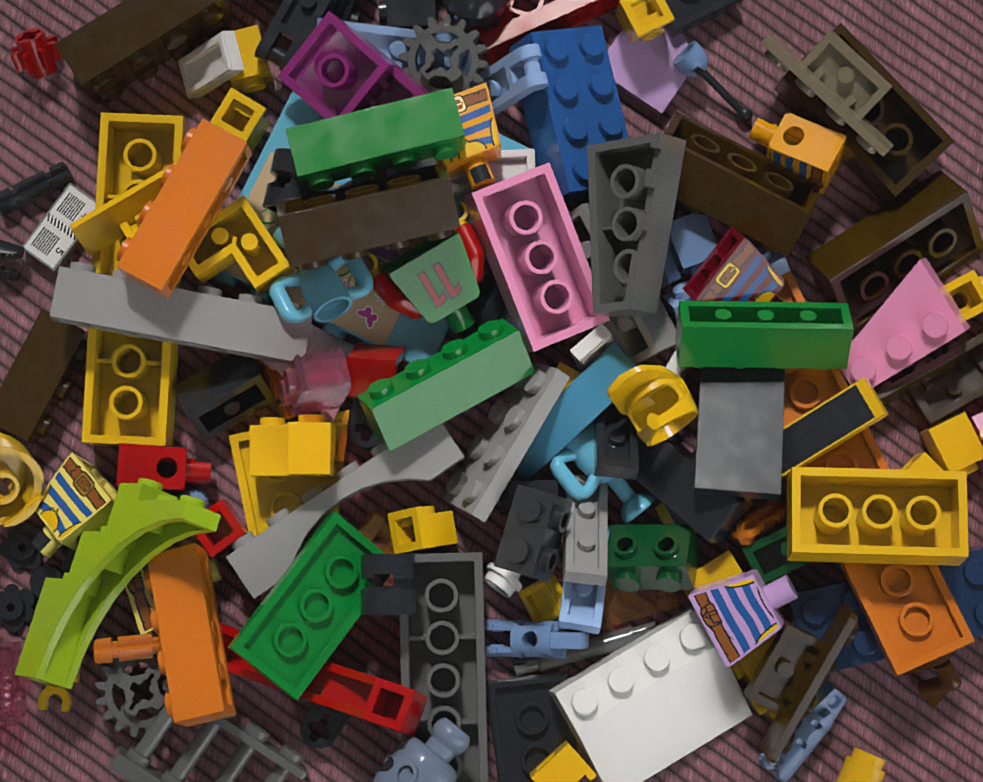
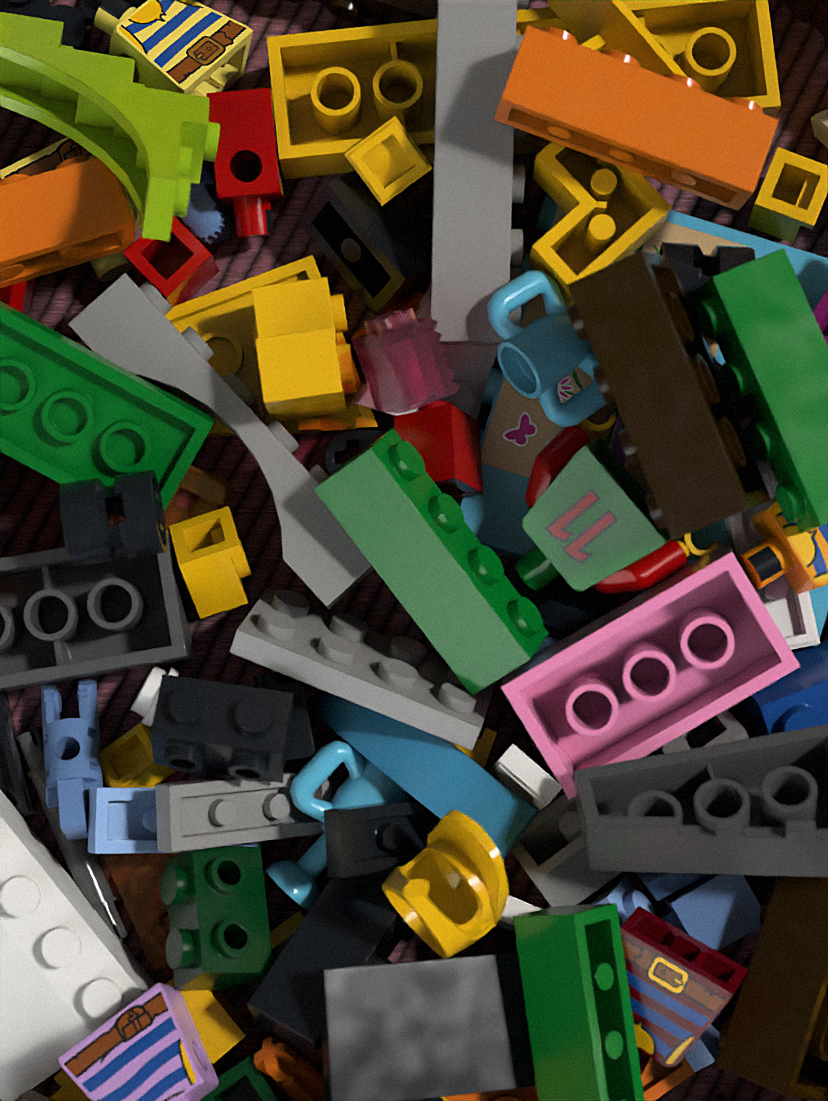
camera: 90 degrees right, 0 degrees up
(178, 374) = (388, 160): none -> yellow tile

